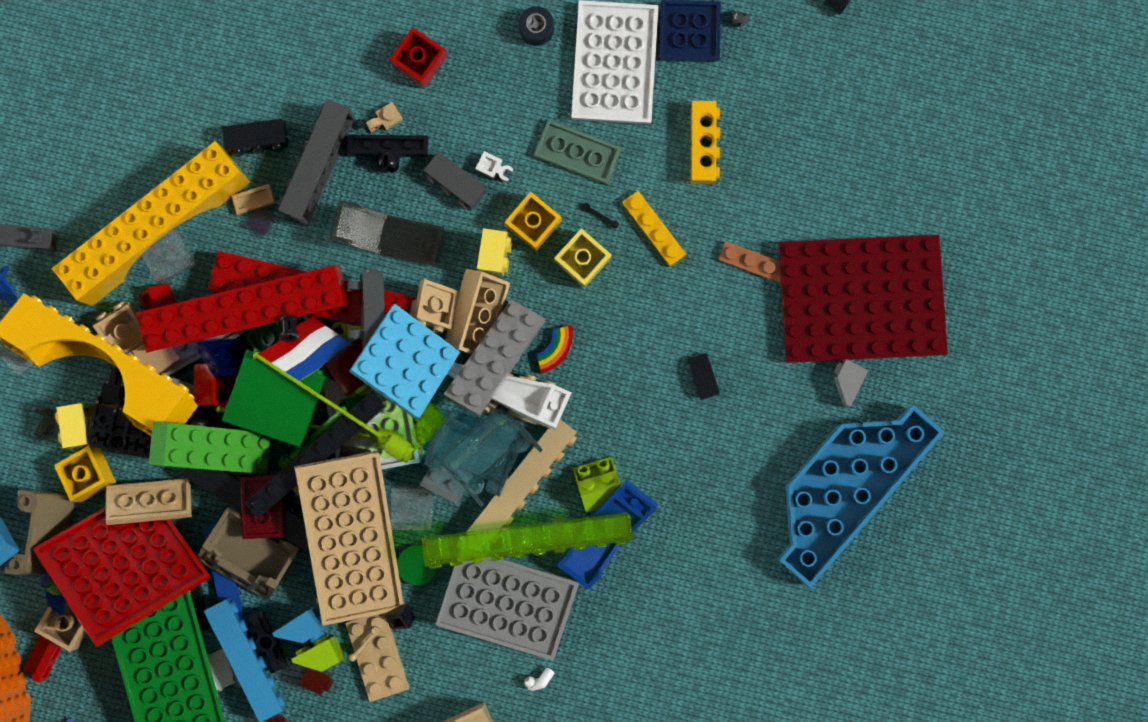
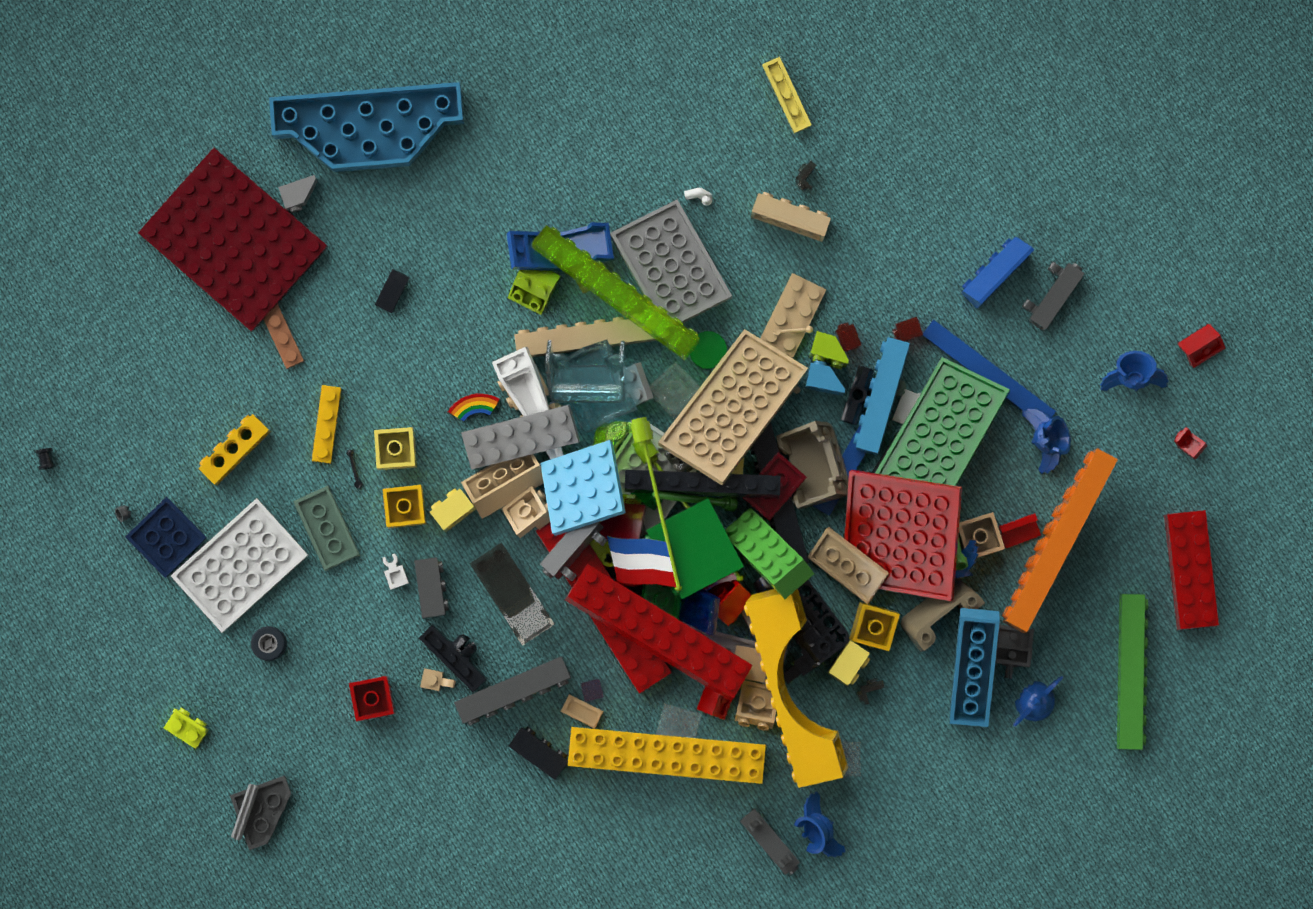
camera: 140 degrees left, 0 degrees up
(292, 331) = (639, 584): black bush -> none
(400, 617) = (752, 325): black slope -> none

